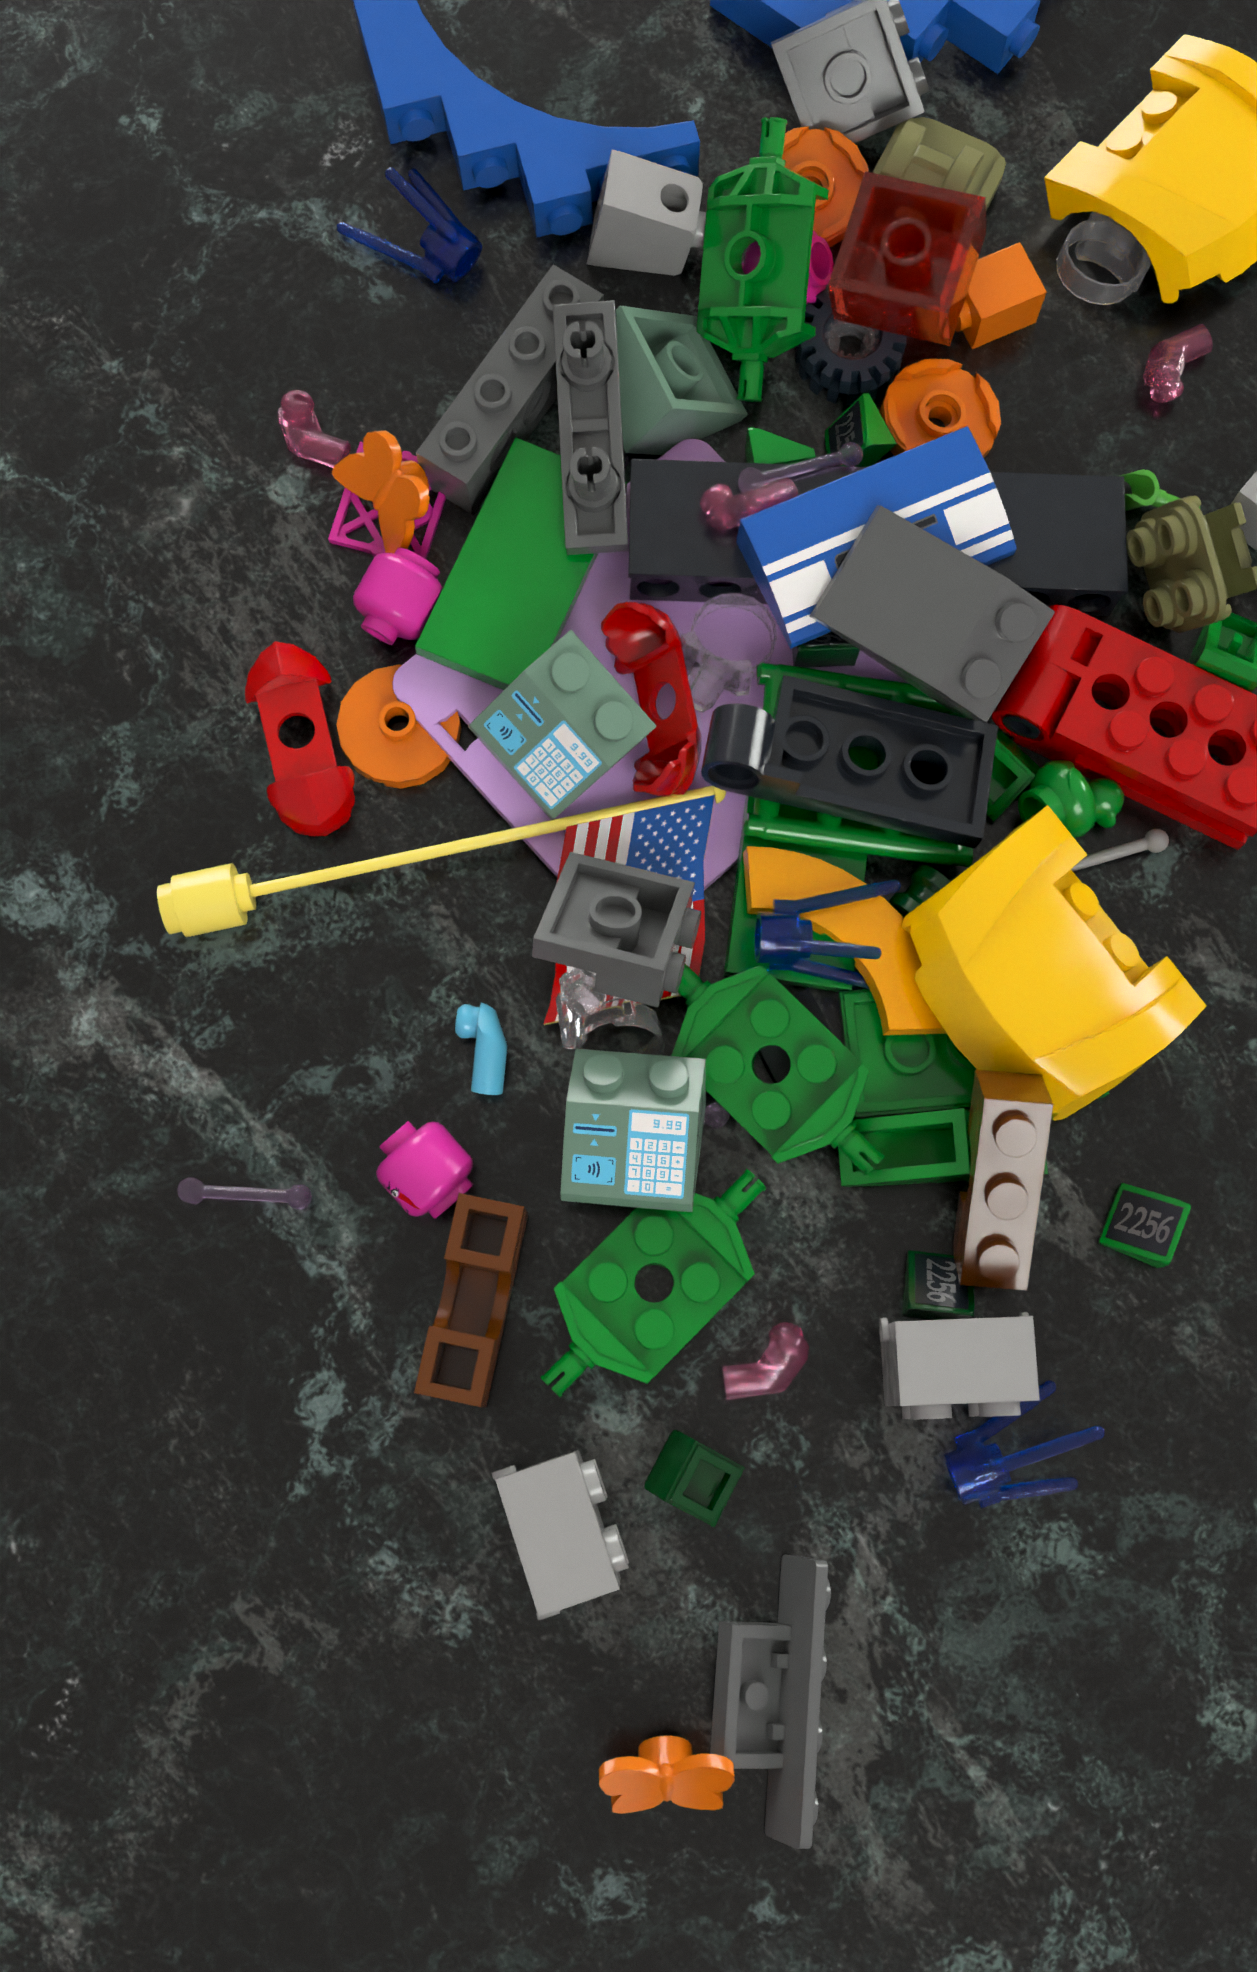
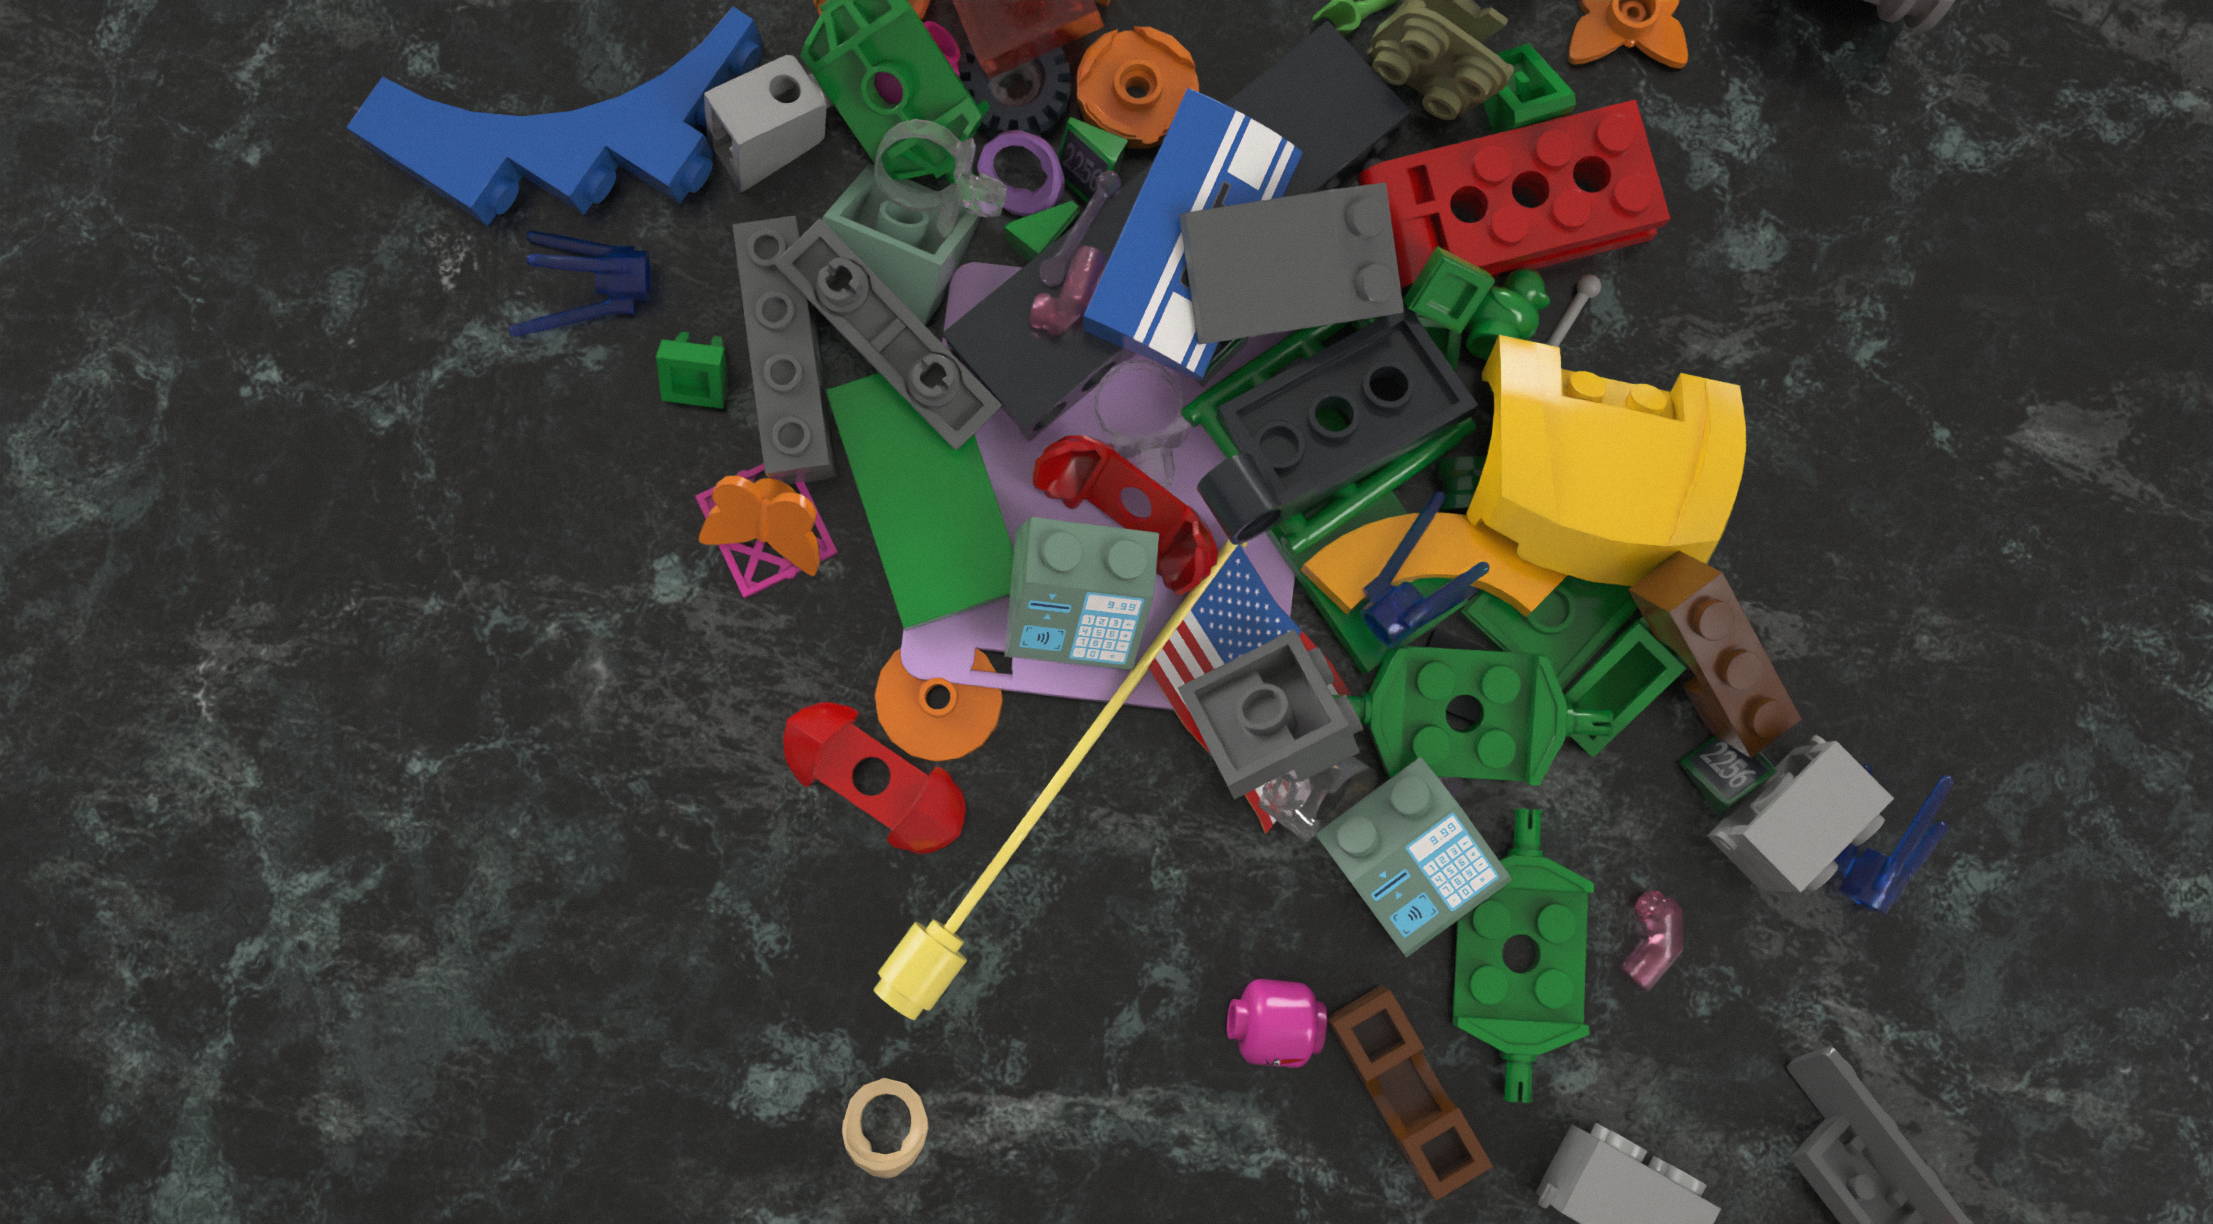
camera: 45 degrees left, 5 degrees up
(48, 991) = (860, 1147): none -> tan piece
(193, 1191) = (1112, 1195): clear purple hinge -> none
(303, 431) = (646, 529): clear pink arm -> none
(397, 595) = (849, 597): dark pink head -> none
(436, 351) = (693, 372): none -> green tile
(489, 1047) = (1240, 886): medium azure arm -> none
(693, 1477) = (1673, 1070): dark green slope -> none
(750, 388) = (980, 194): none -> clear piece
(773, 415) = (1021, 200): none -> medium lavender piece
(1037, 739) = (1448, 290): none -> green tile
(1144, 1225) = (1833, 589): slope -> none

